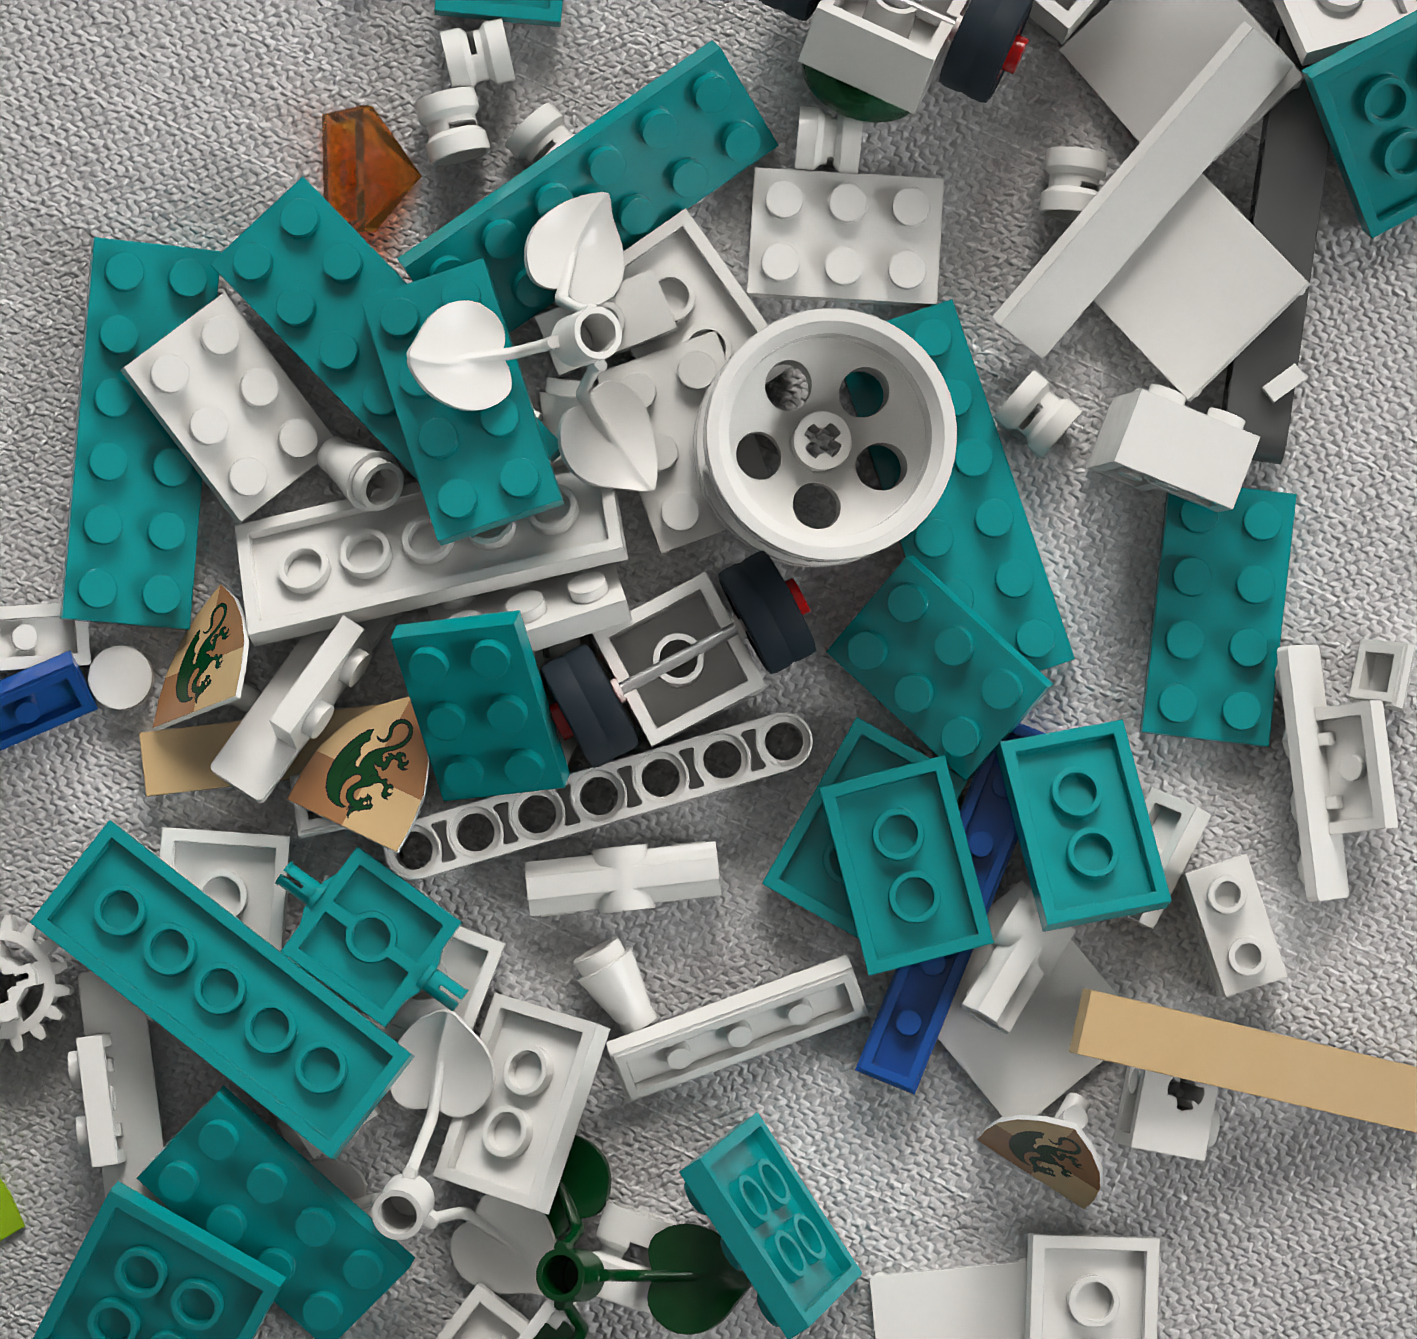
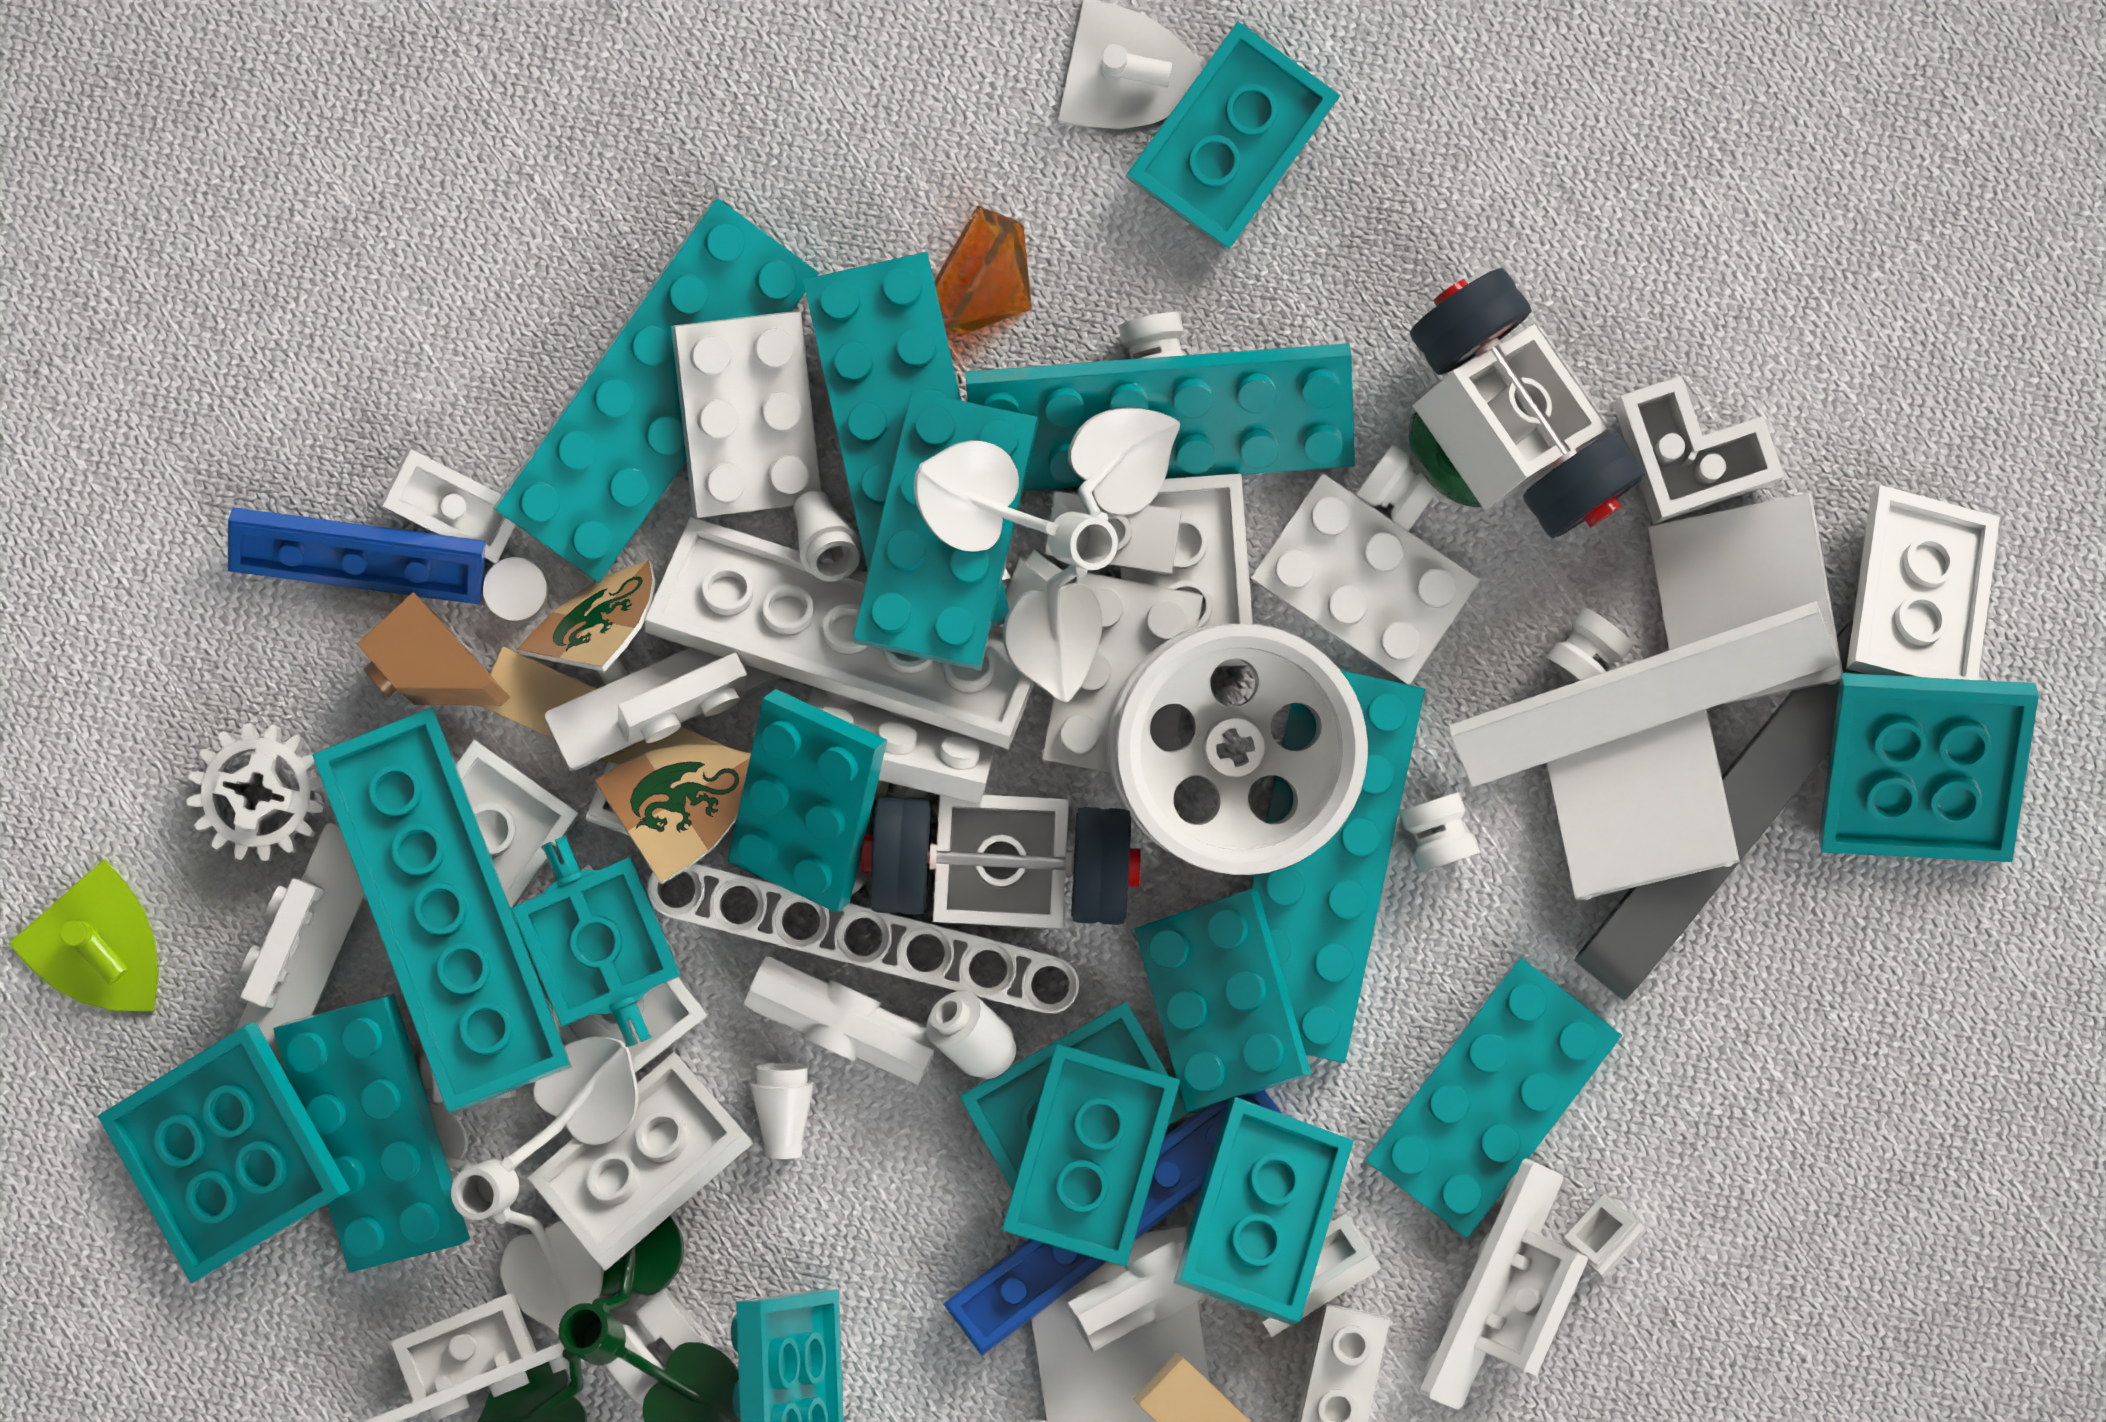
camera: 30 degrees right, 0 degrees up
(80, 783) = (426, 661): none -> medium nougat slope
(452, 126) = (1082, 283): white wheel -> none
(478, 55) = (1140, 235): white wheel -> none
(737, 1028) = (863, 1207): white tile -> none
(742, 824) = (971, 1035): none -> white brick
(1163, 445) = (1530, 927): white brick -> none
(1283, 383) = (1666, 933): white piece -> none

